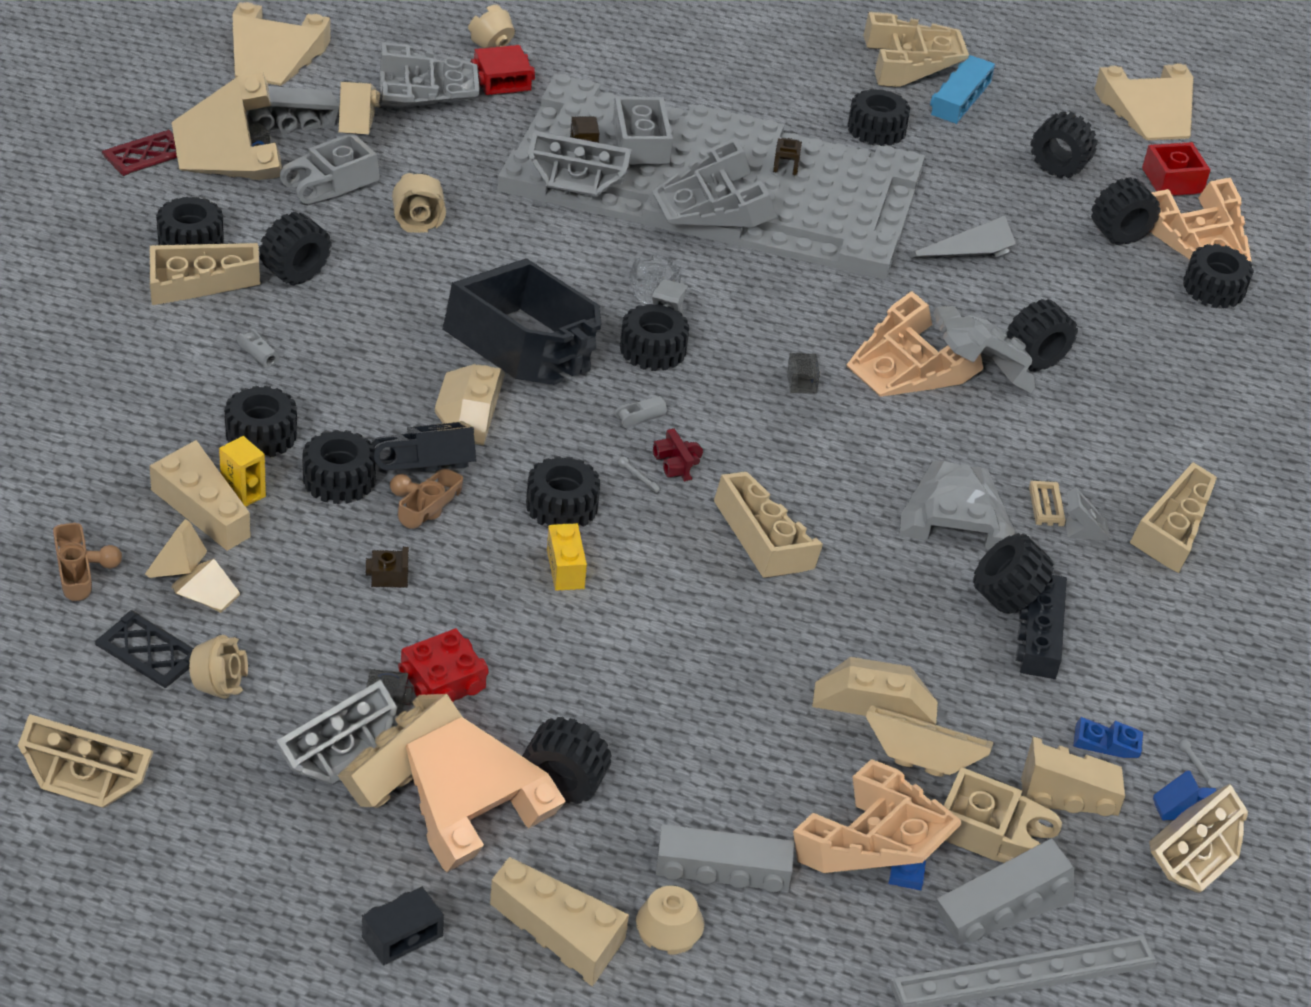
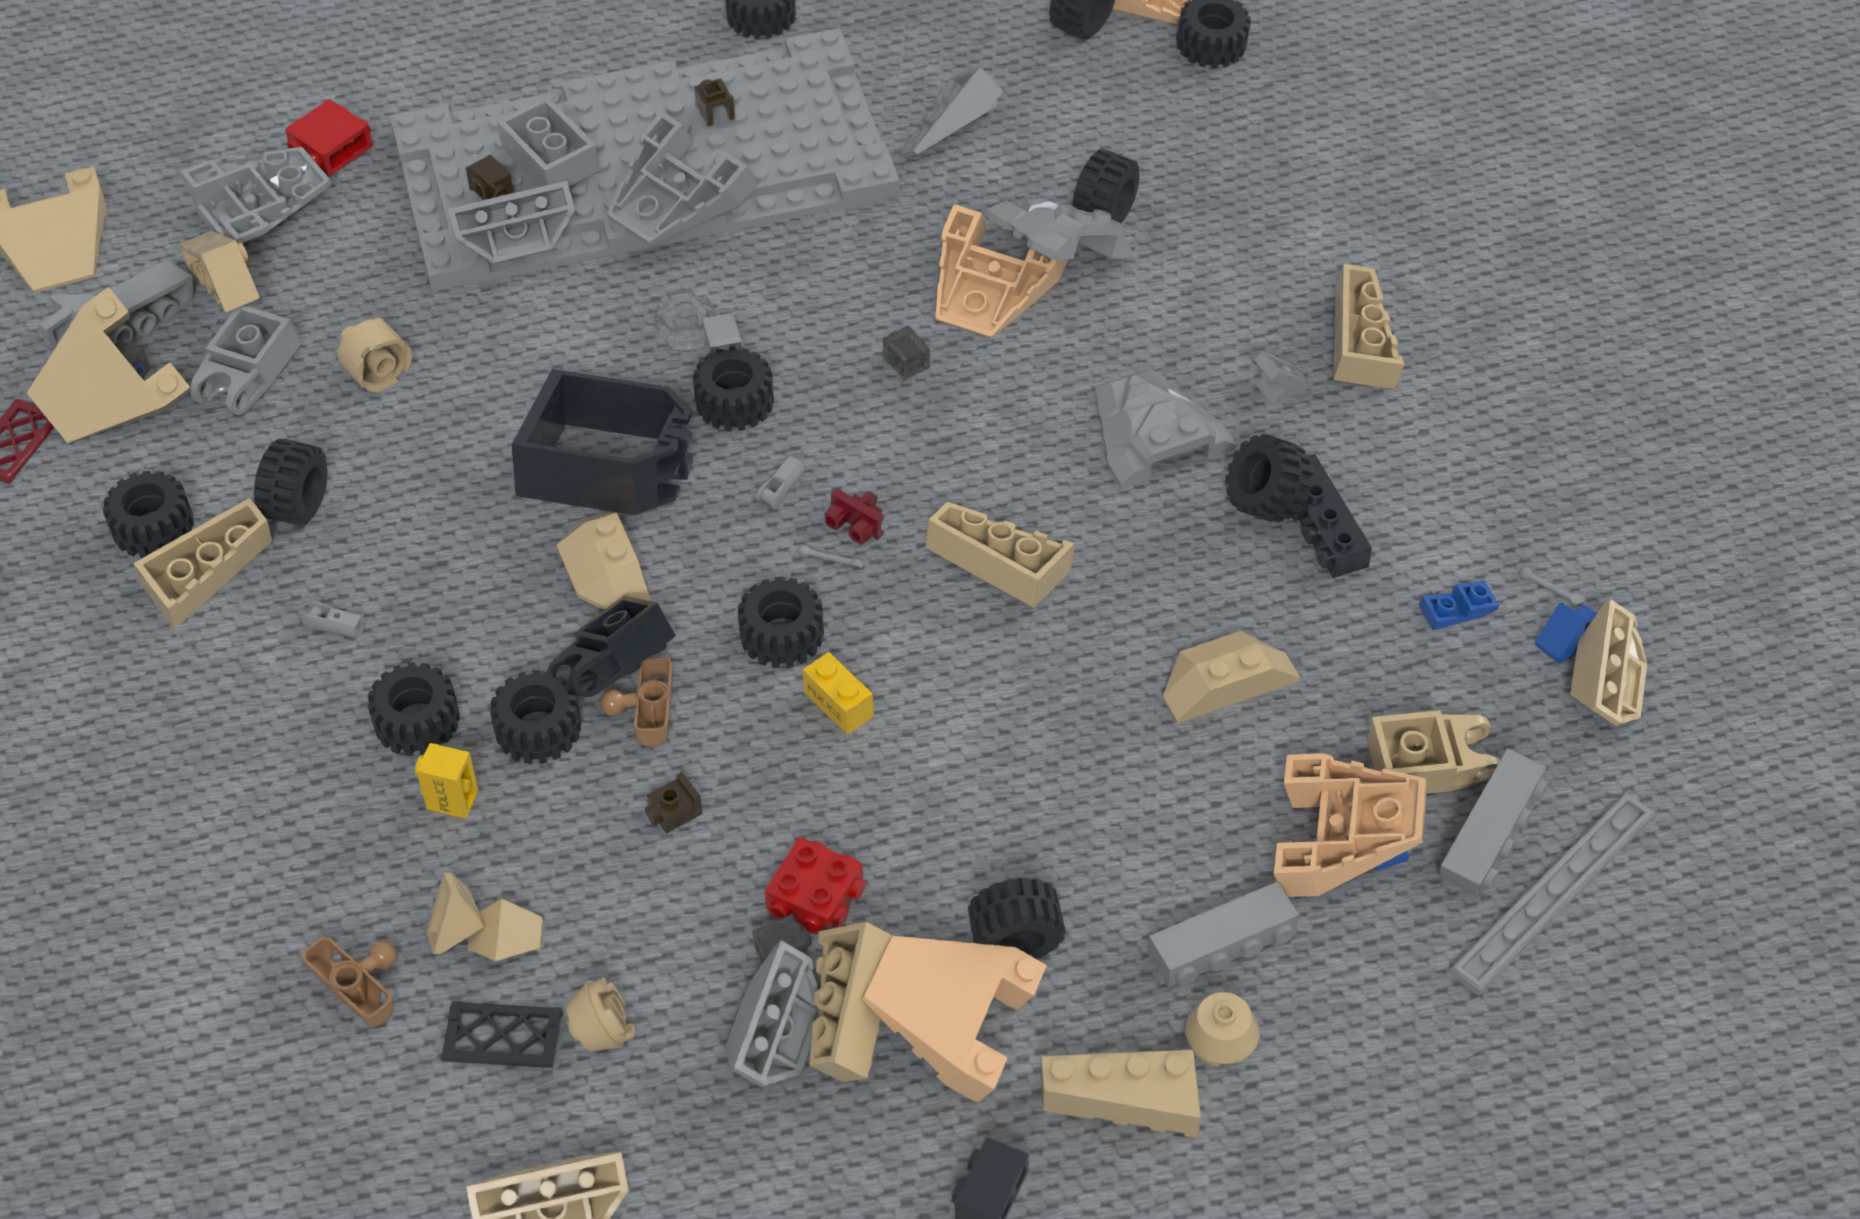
camera: 25 degrees left, 10 degrees up
(201, 494) = (421, 829): tan wedge -> none
(492, 28) = (281, 91): tan cone -> none
(925, 743) = (1318, 706): tan wedge -> none
(1047, 517) = (1236, 392): tan tile -> none
(1071, 782) = (1465, 673): tan wedge -> none

